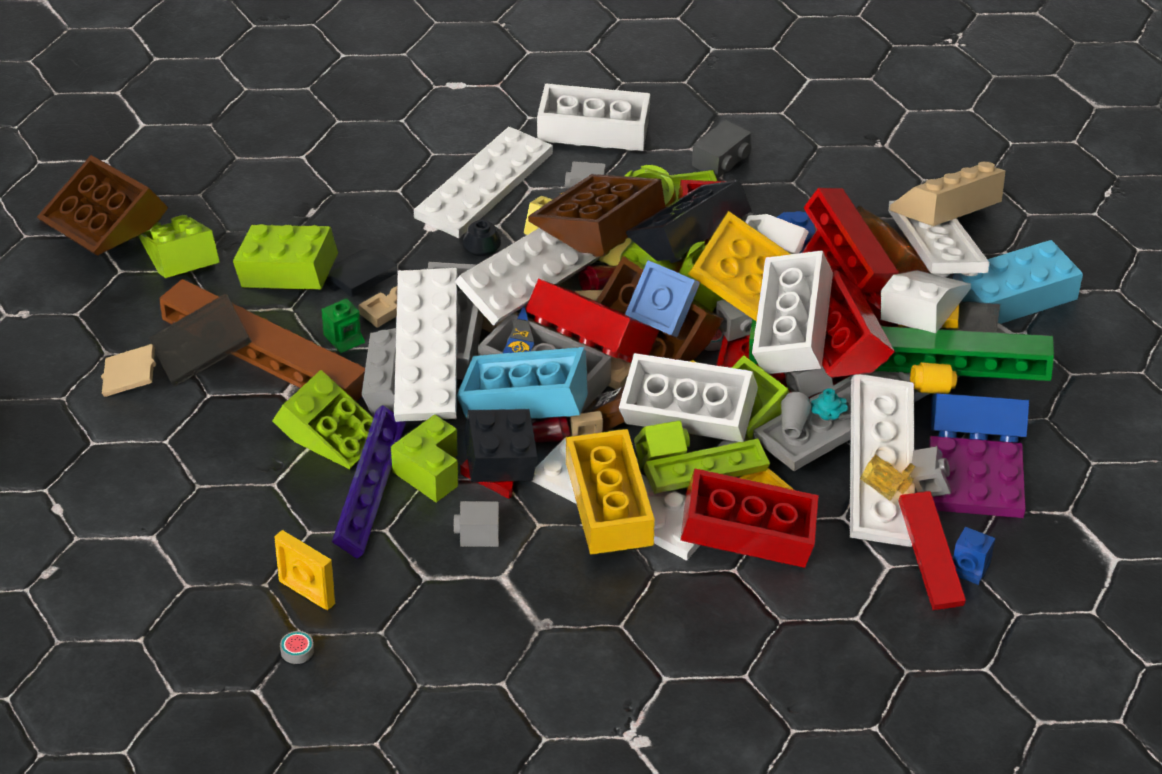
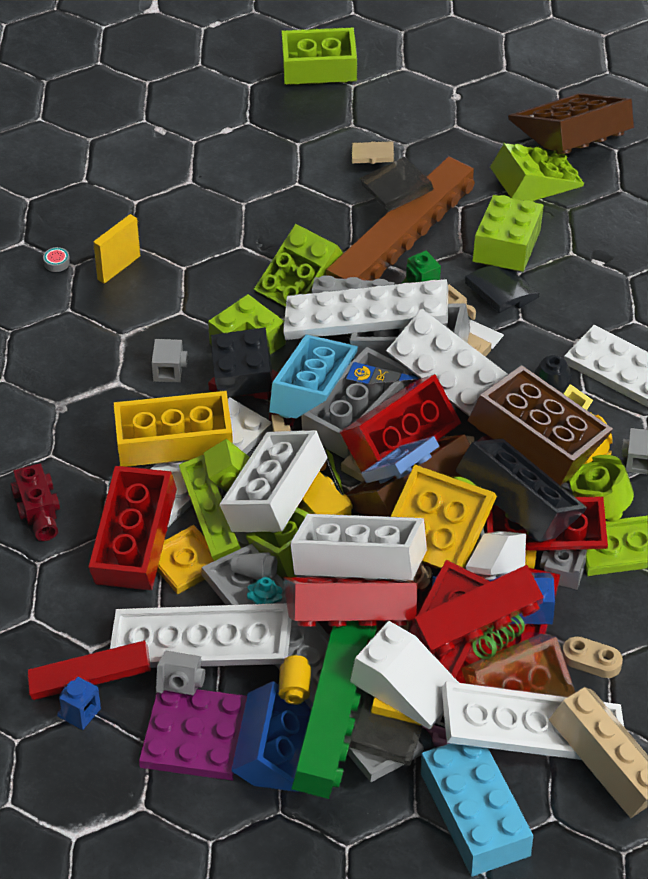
camera: 95 degrees right, 5 degrees up
(368, 483) = (215, 291): dark purple tile -> none
(700, 620) = (36, 502): none -> dark red brick
(886, 479) = (159, 624): clear yellow bracket -> none

